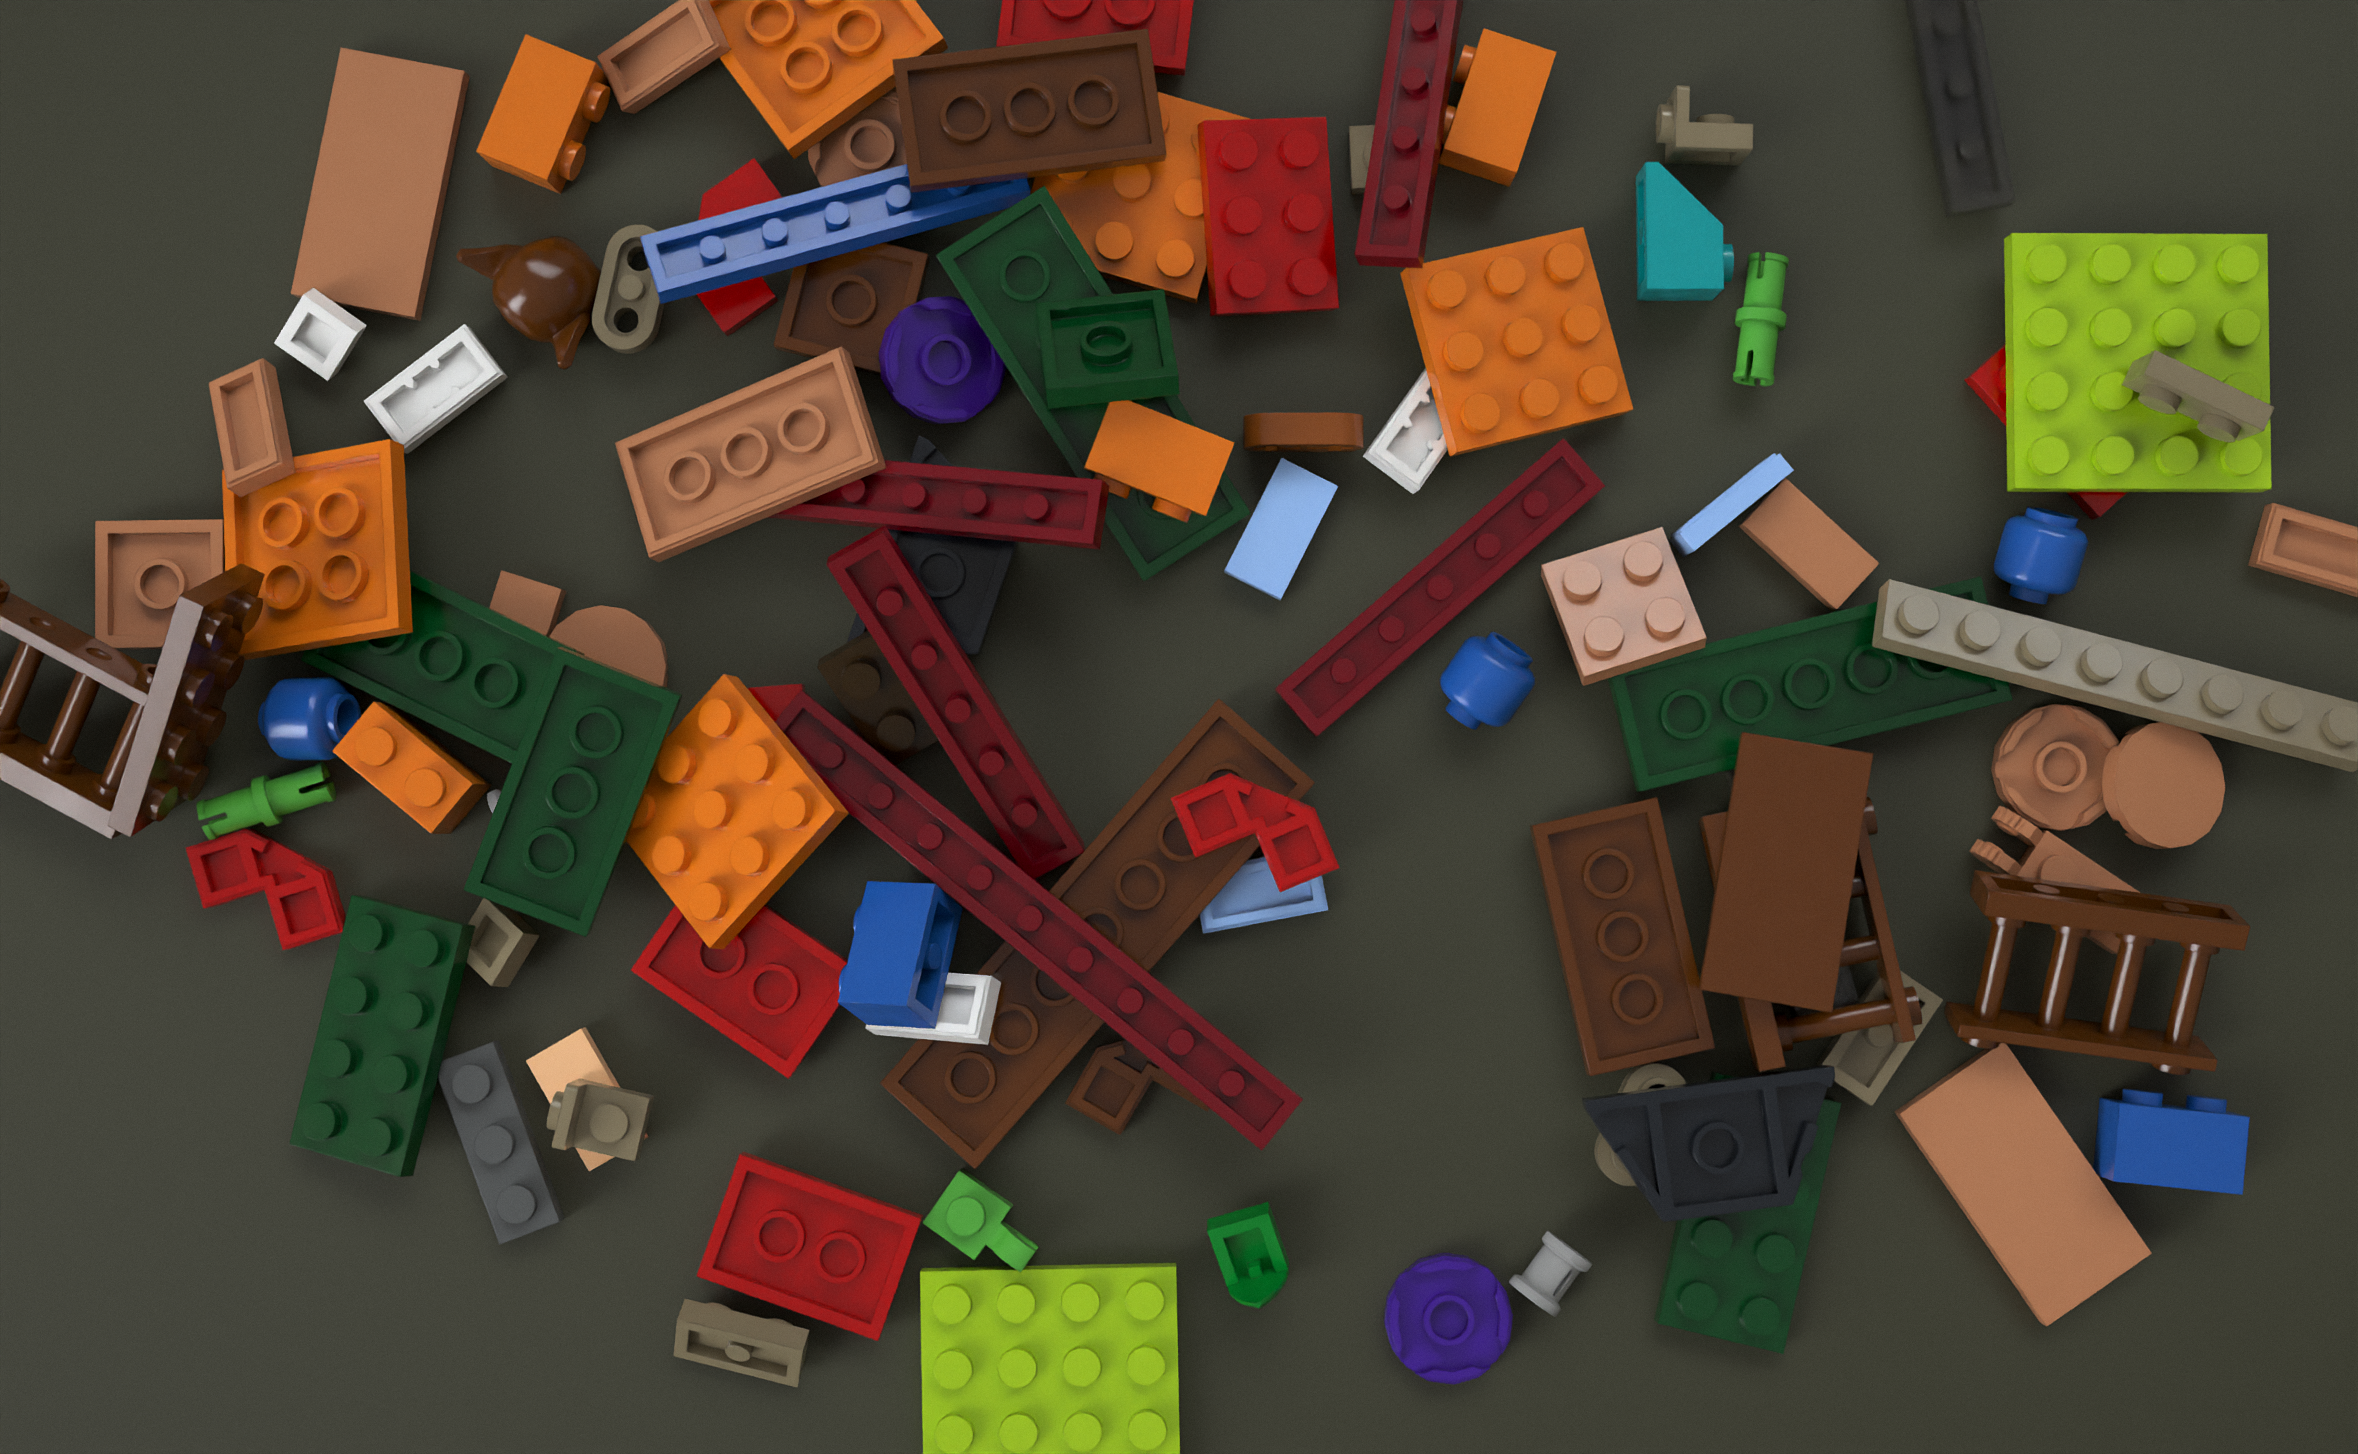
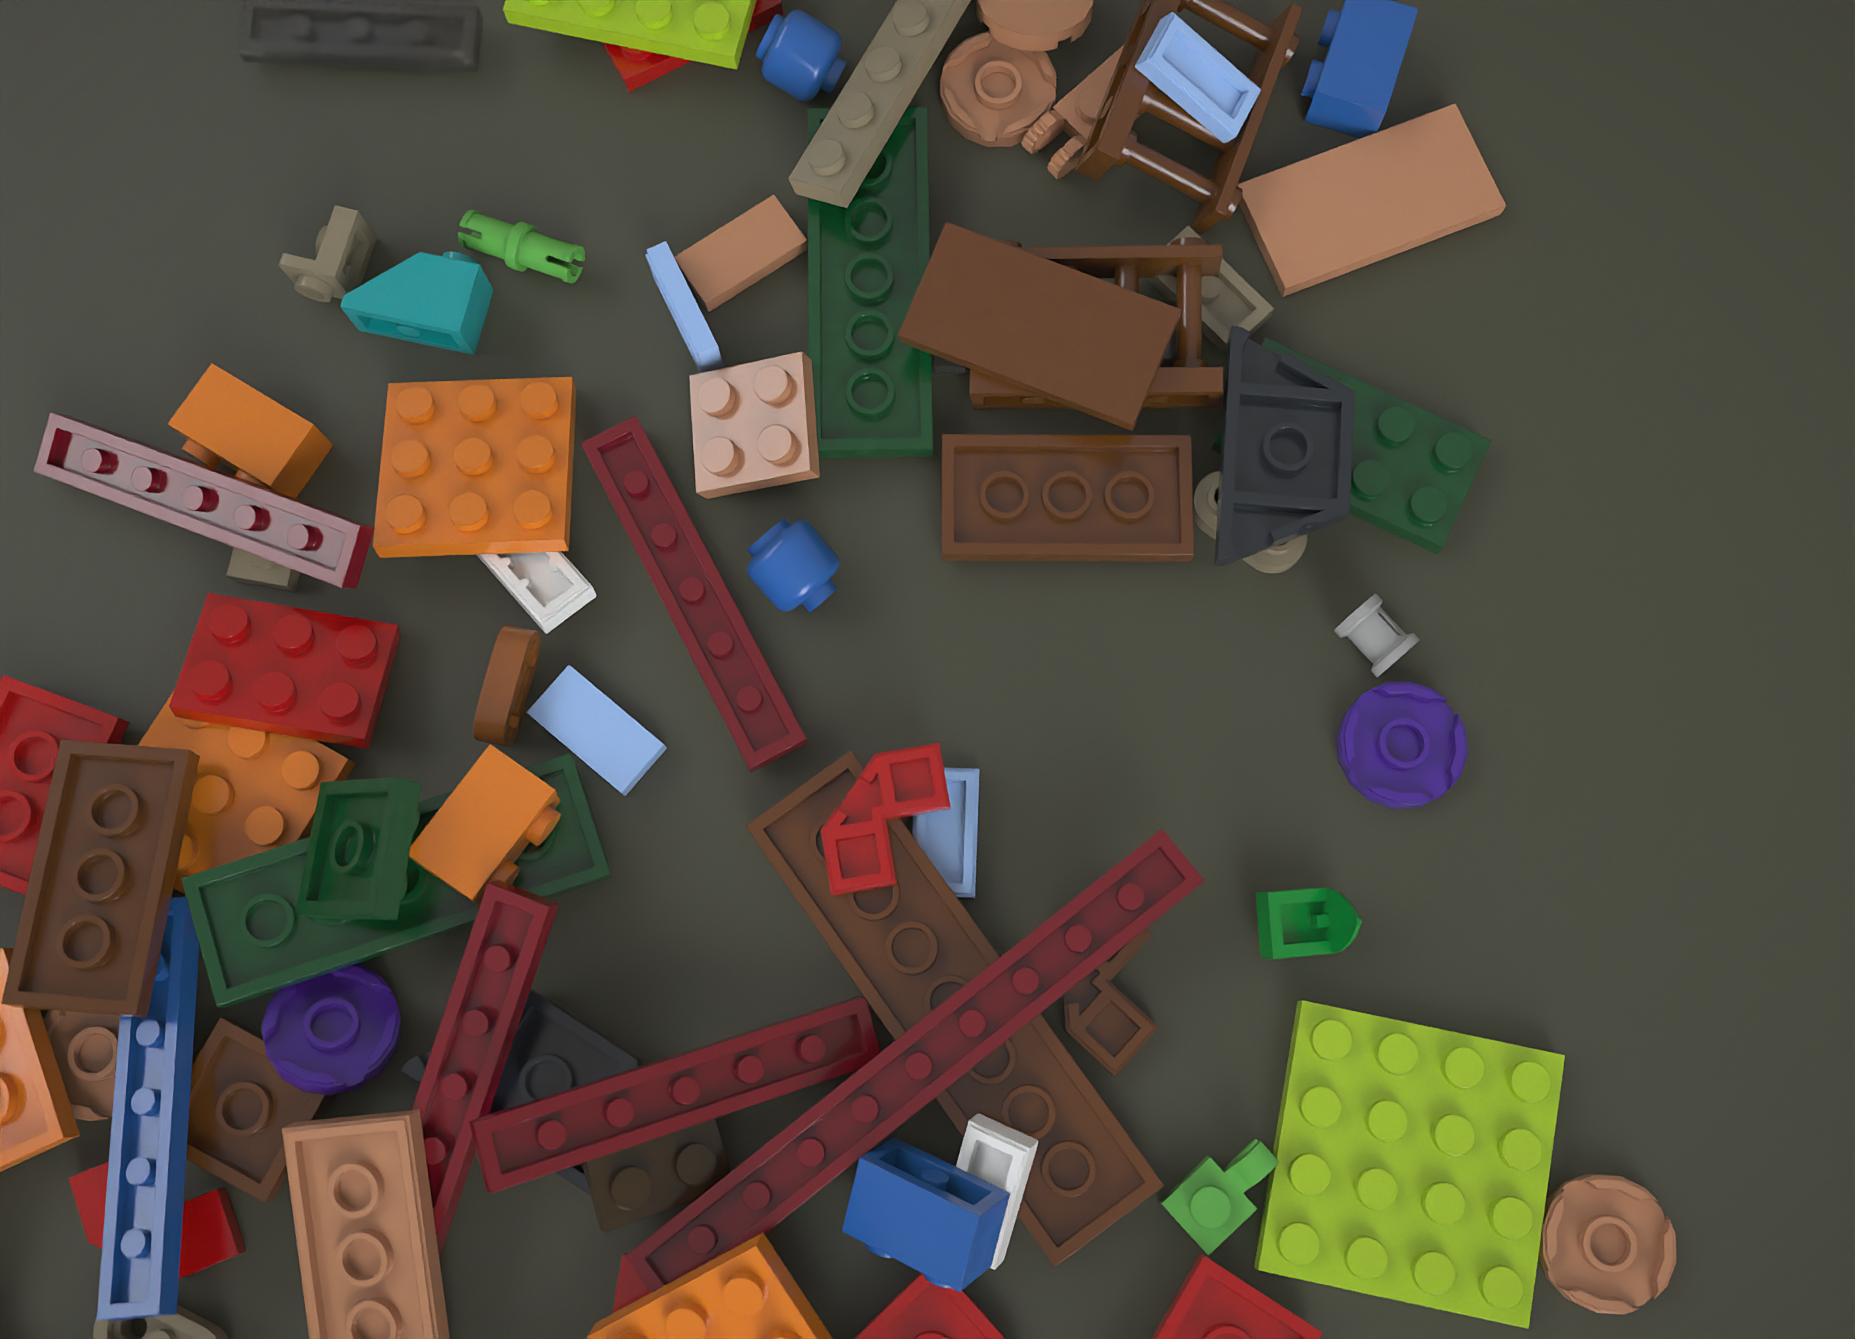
camera: 80 degrees left, 10 degrees down
(2099, 977) = (1197, 77): none -> light blue tile

